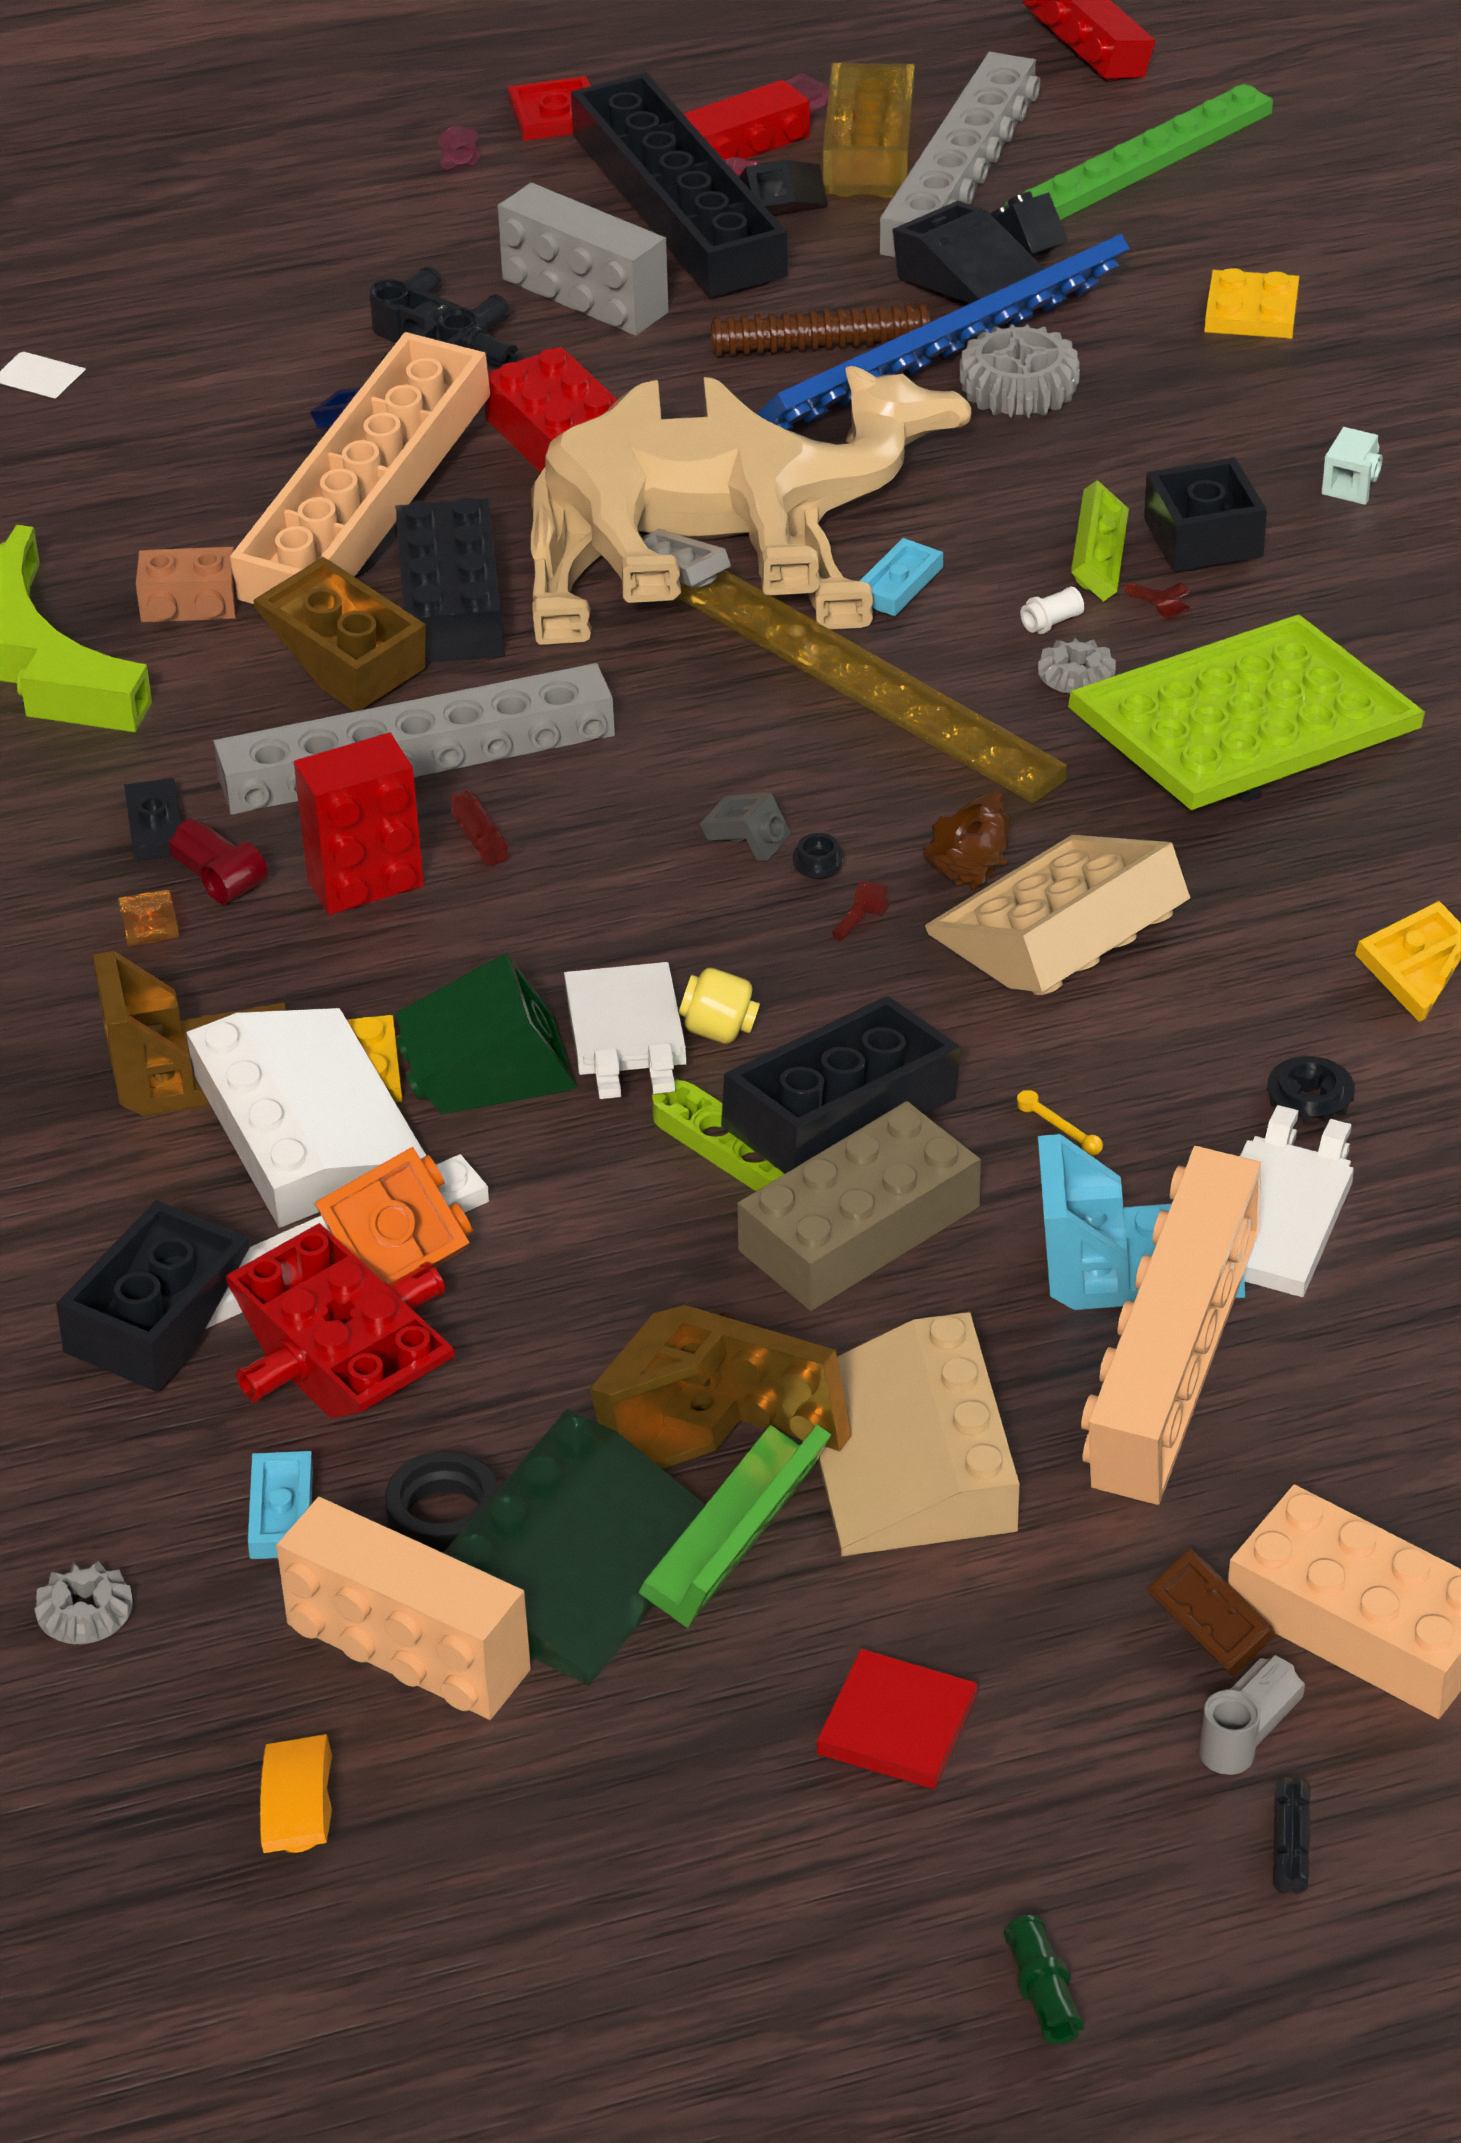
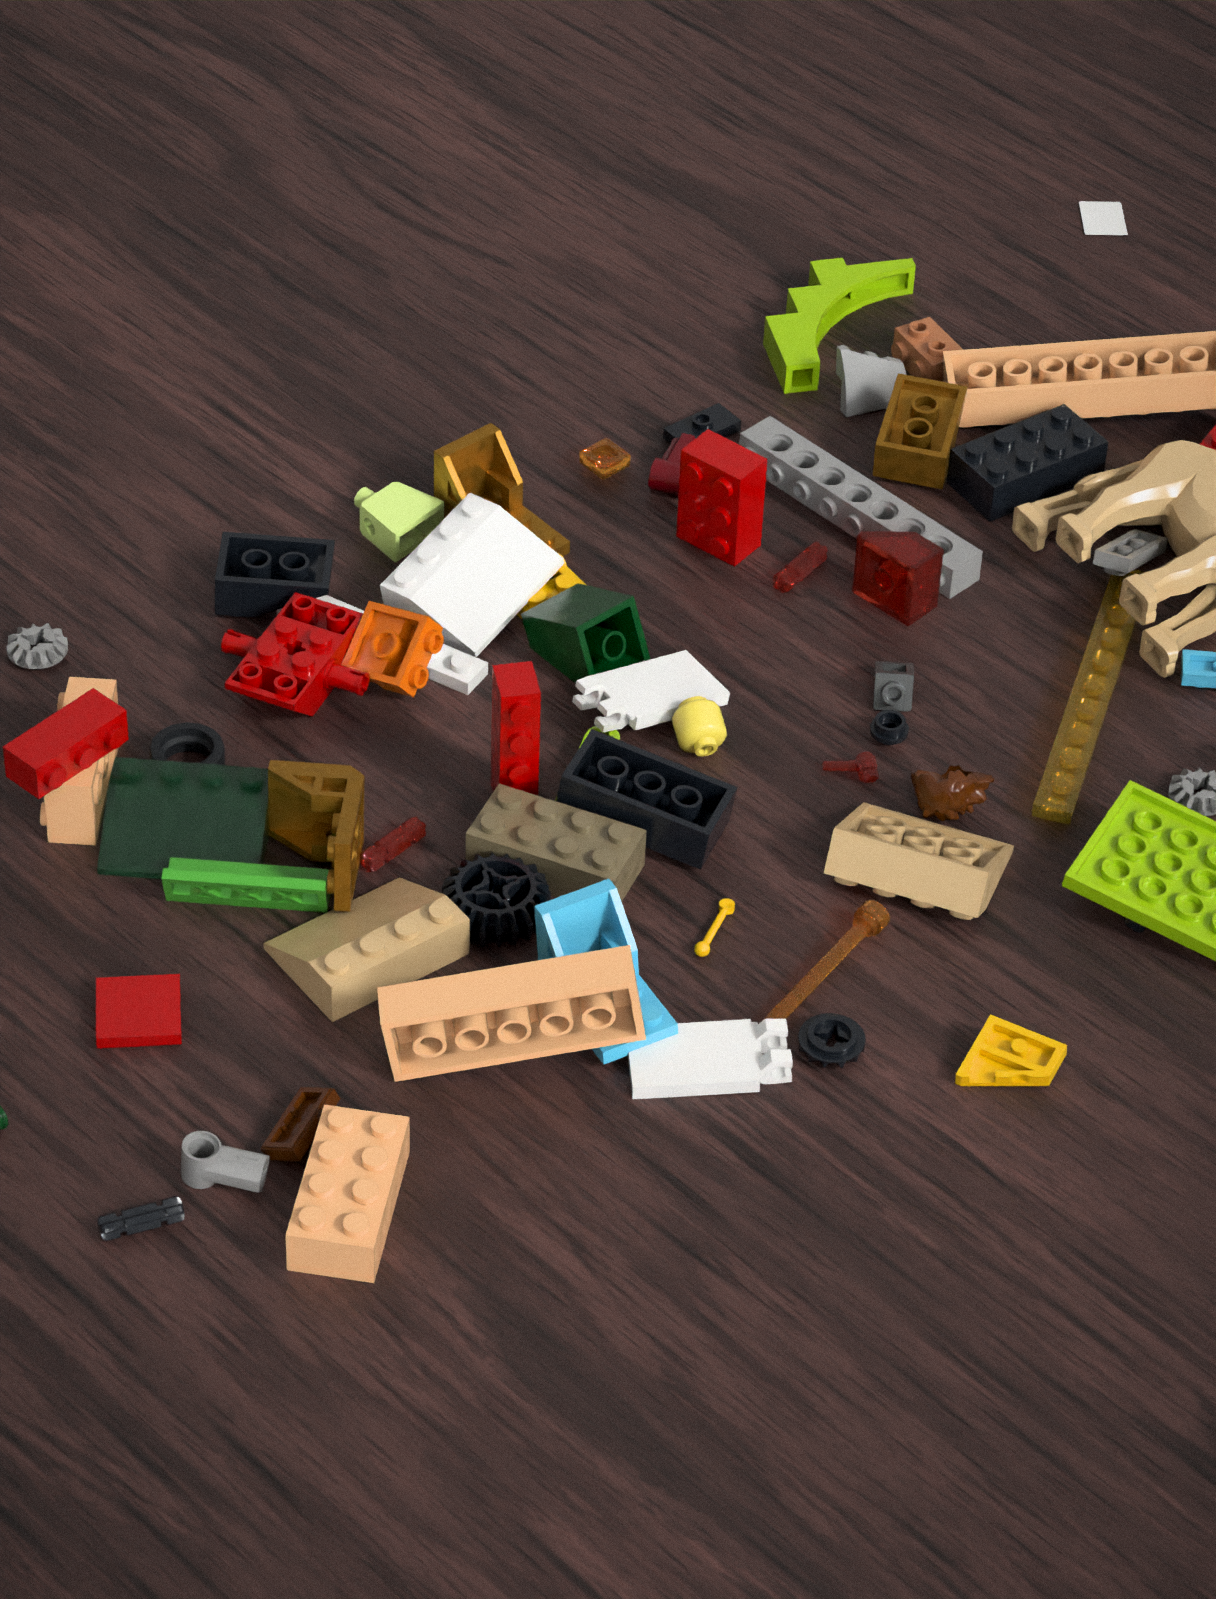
camera: 60 degrees right, 0 degrees up
(115, 1144) = (397, 517): none -> yellowish green torso
(210, 640) = (865, 380): none -> light grey slope
(278, 1498) = (155, 691): medium azure plate -> none
(449, 1577) = (65, 743): none -> red brick
(587, 741) = (898, 573): none -> clear red slope
(707, 1139) = (515, 727): none -> red brick
(877, 1281) = (497, 897): none -> black gear
(1136, 989) = (867, 922): none -> clear orange piece

